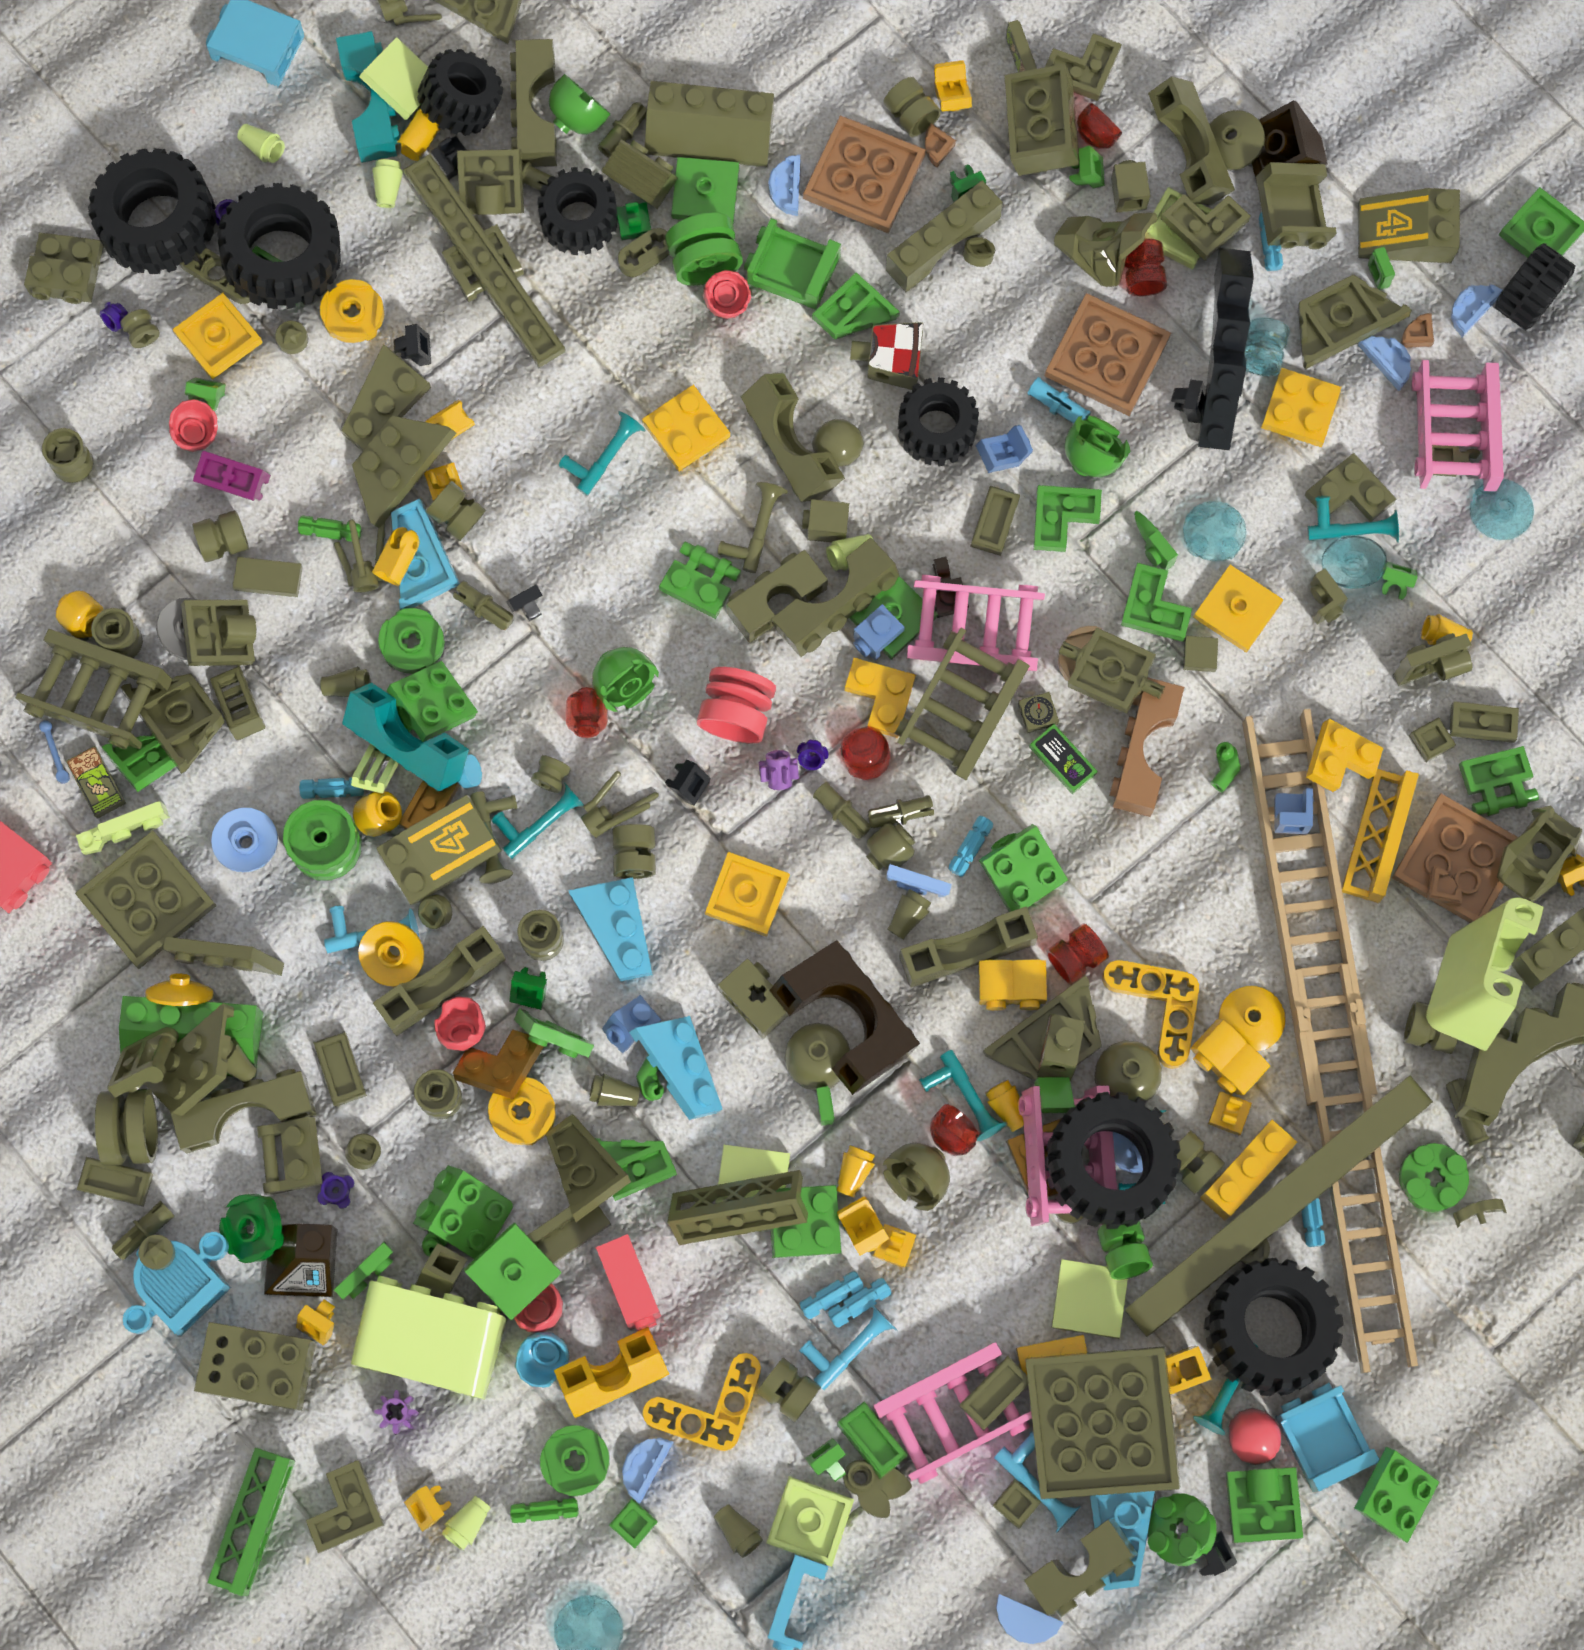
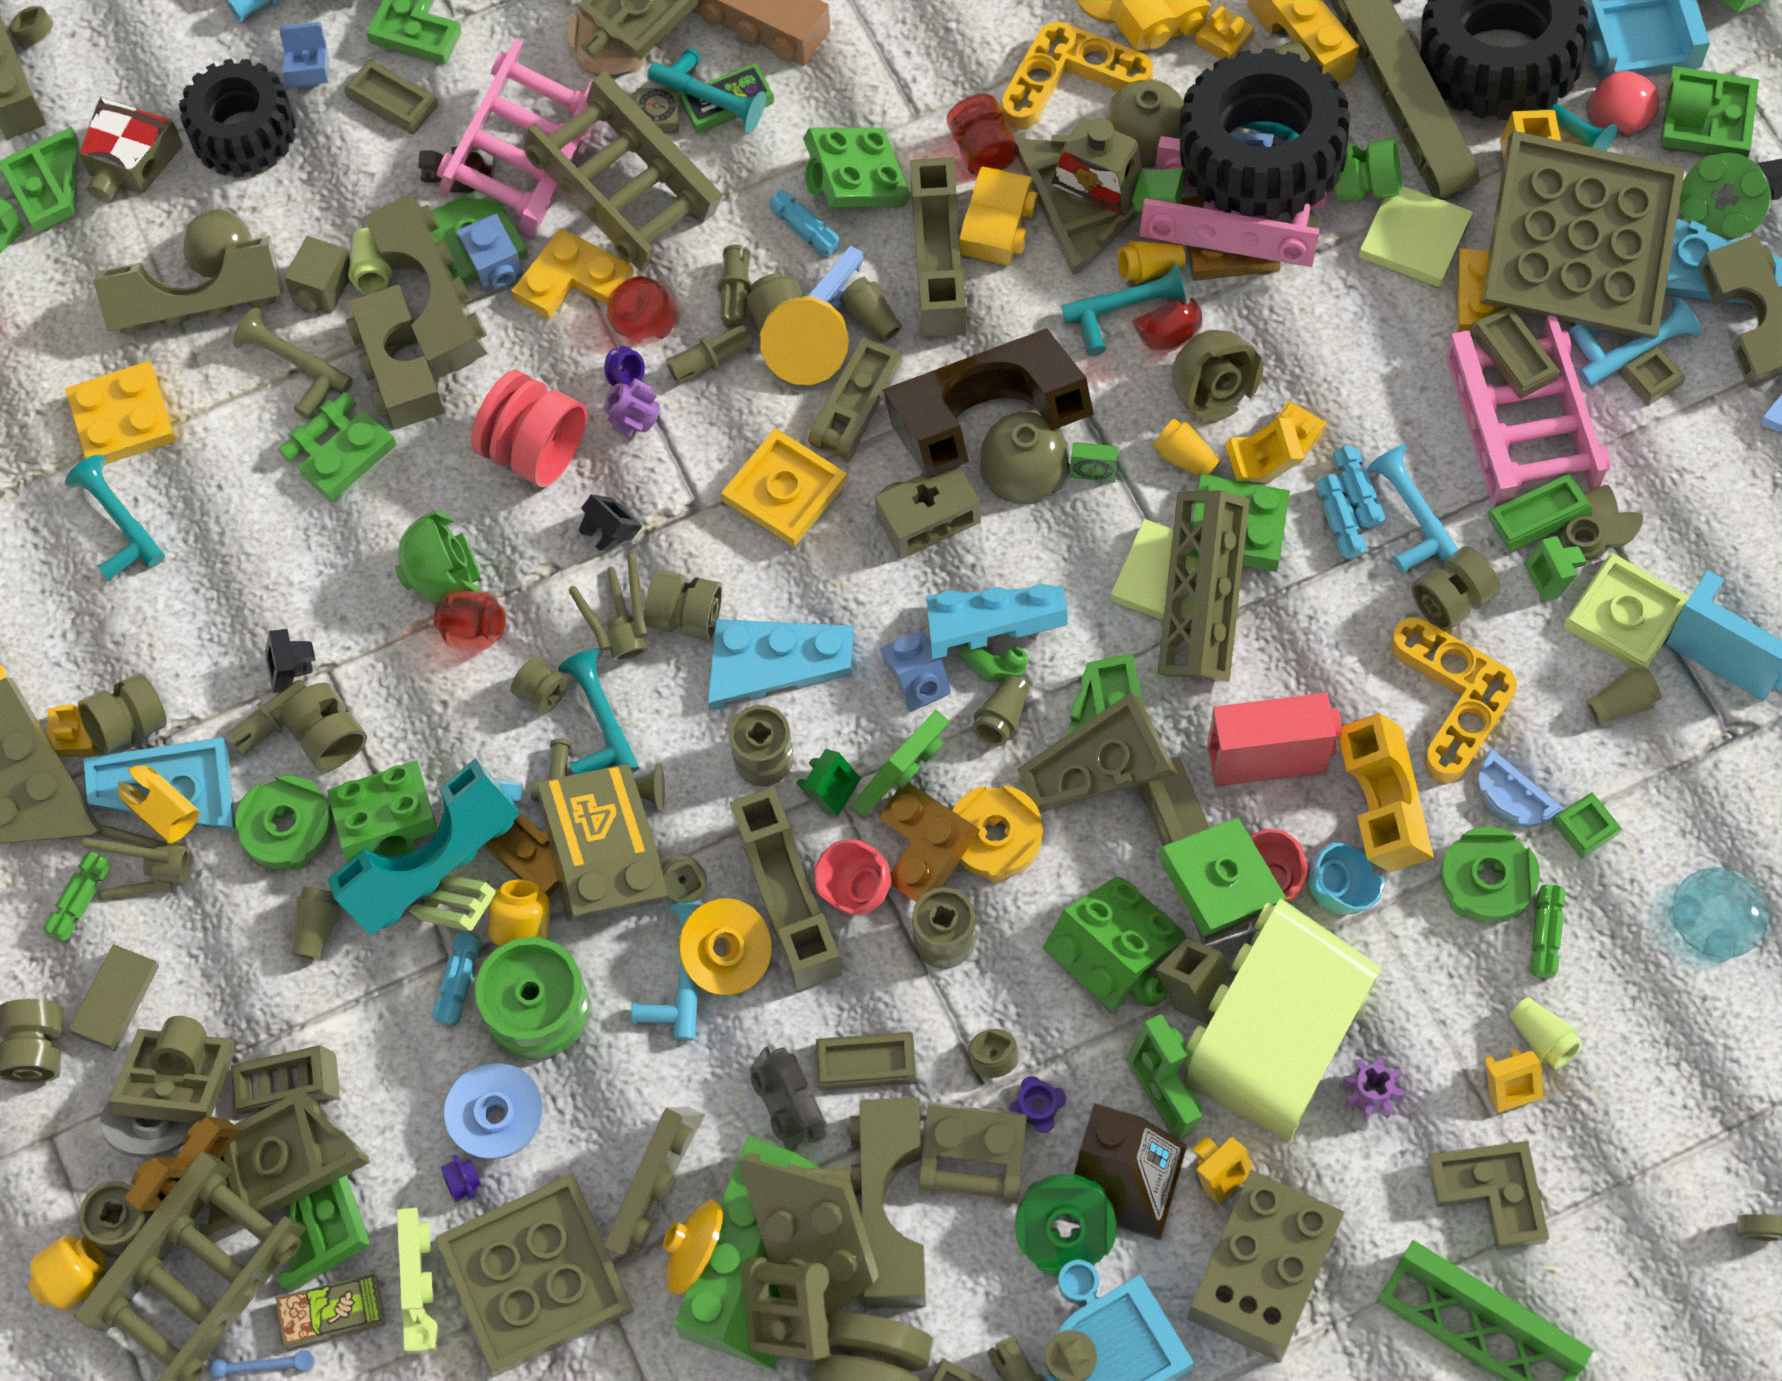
camera: 70 degrees left, 10 degrees down
(136, 648) = (159, 1175): none -> pearl gold plate
(196, 833) = (460, 1179): none -> dark purple plate
(289, 1032) = (775, 1079): none -> clear smoke hinge
(474, 651) = (323, 726): none -> olive wheel
(833, 923) = (855, 397): none -> olive plate
(862, 874) = (804, 340): none -> yellow tile
(1062, 714) = (676, 78): none -> teal piece

